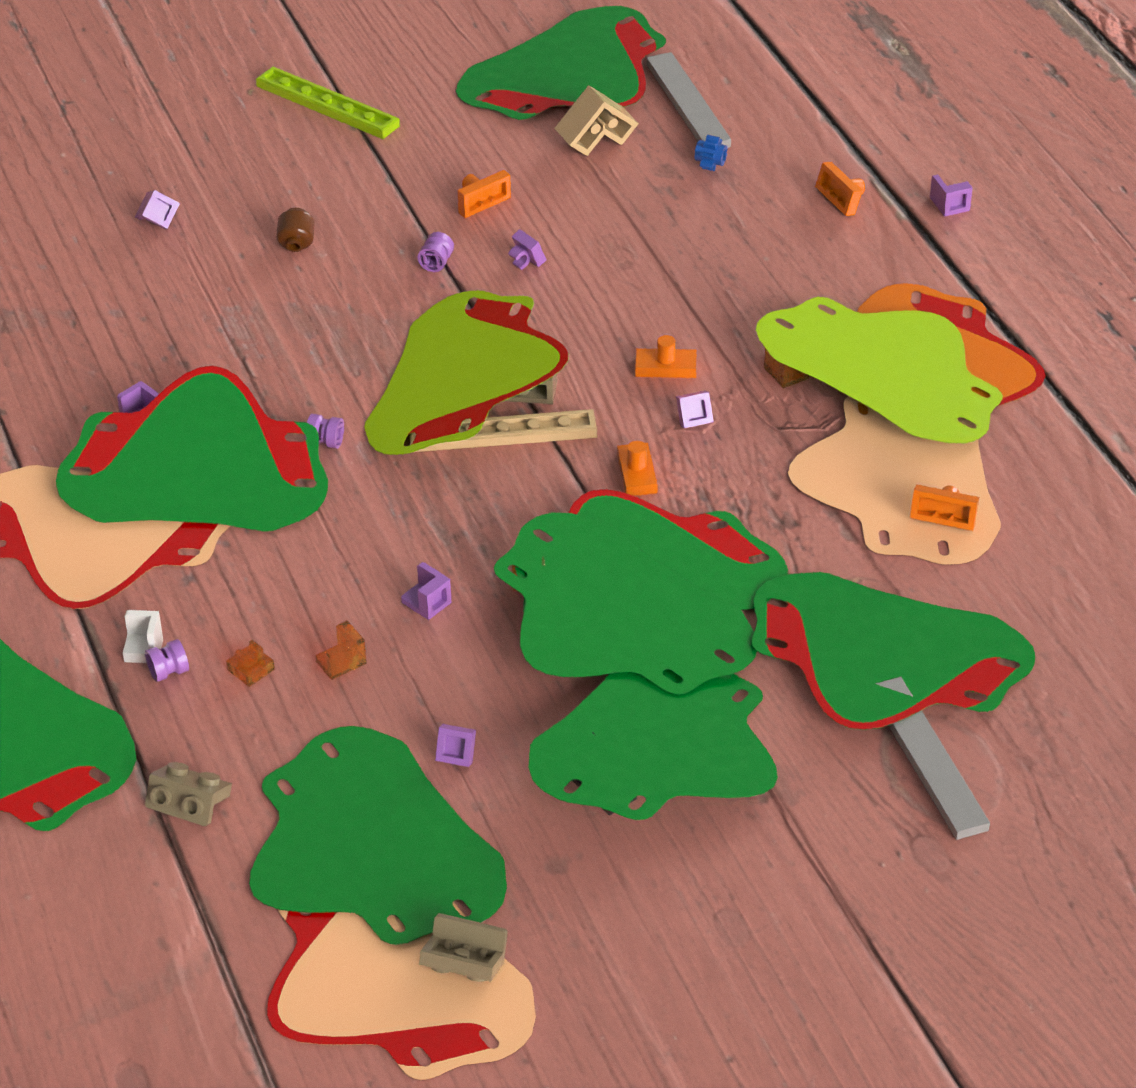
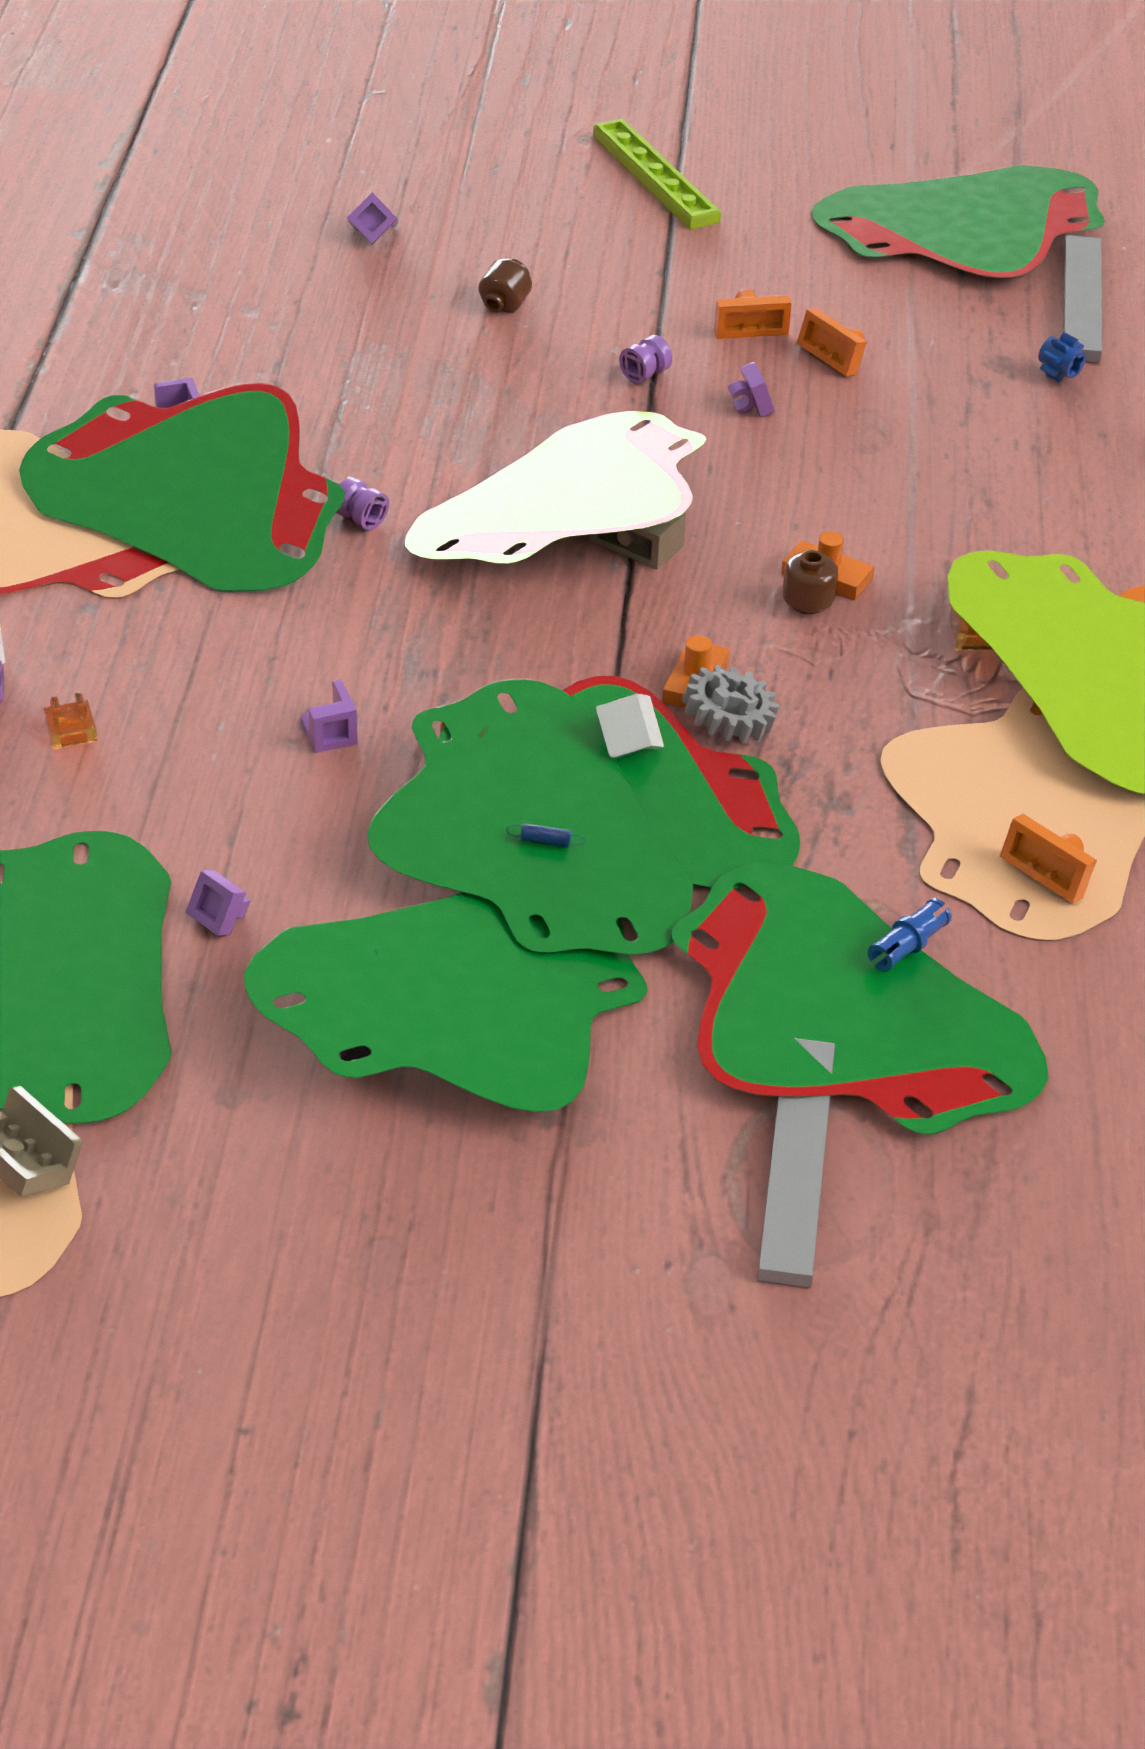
camera: 25 degrees right, 0 degrees up
(345, 656) = (178, 753): clear orange panel -> none
(525, 429) = (592, 583): tan tile -> none
(552, 194) = (832, 342): none -> orange tile
(592, 118) = (940, 272): tan brick -> none
(635, 521) = (629, 725): none -> white panel
(636, 615) = (545, 835): none -> blue piece
(668, 376) = (810, 582): none -> reddish brown head
(679, 480) = (730, 703): none -> light grey gear
(694, 409) = (816, 630): tile -> none
(897, 590) = (909, 934): none -> blue pin

